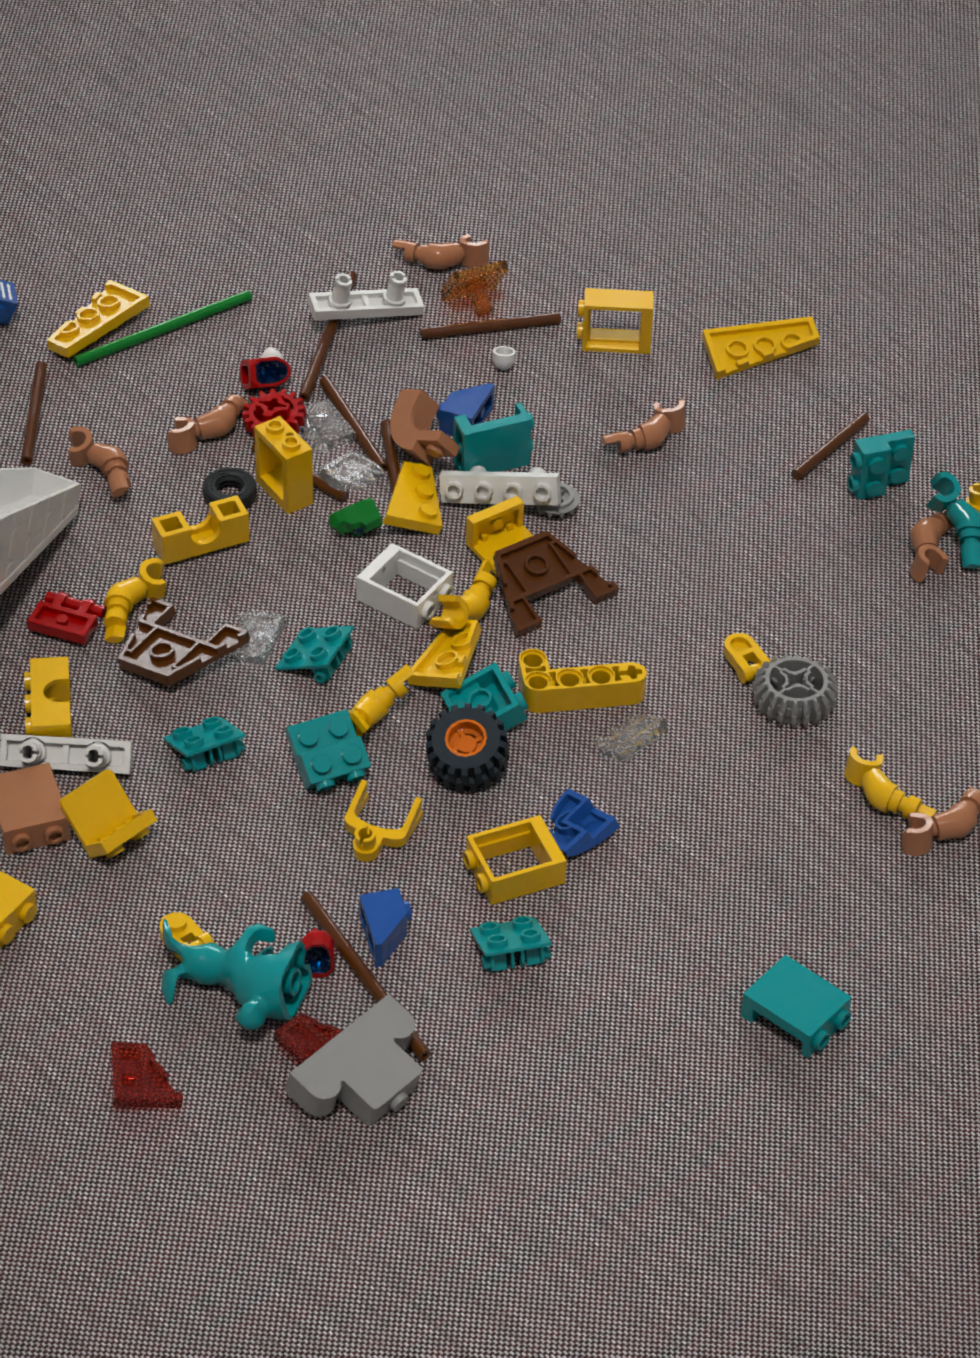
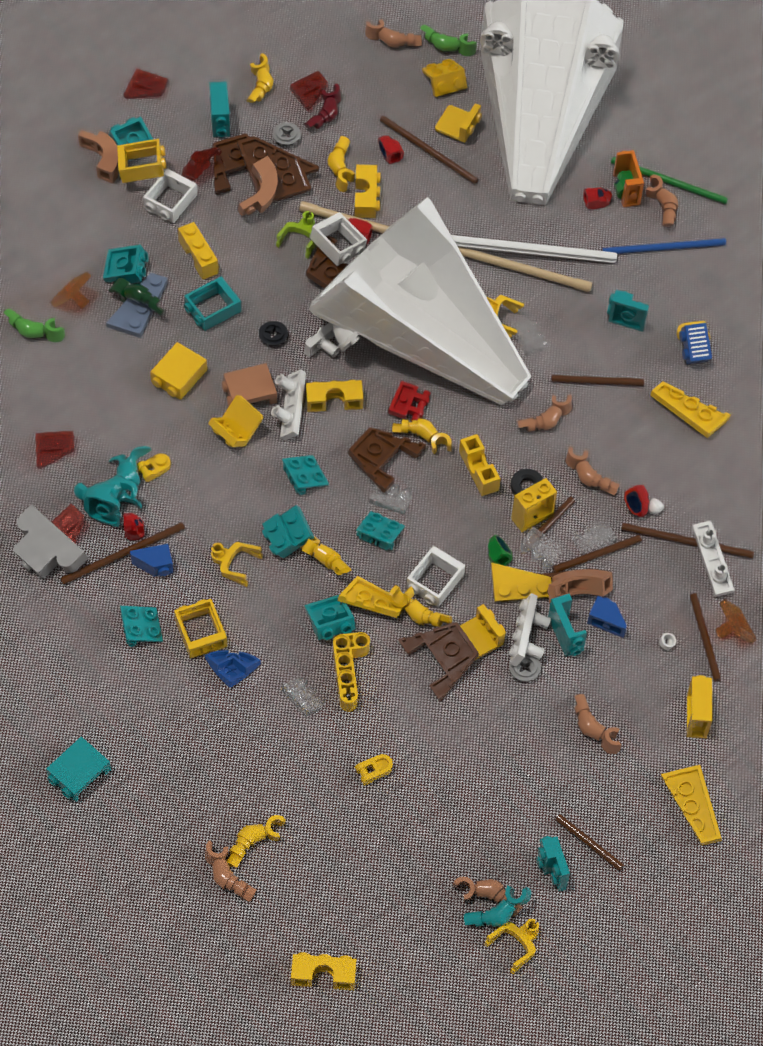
camera: 90 degrees right, 15 degrees up
(162, 328) = (687, 447): green piece -> none
(274, 405) = (596, 506): red gear -> none
(467, 748) = (284, 602): black wheel -> none
(795, 690) = (333, 781): light grey gear -> none

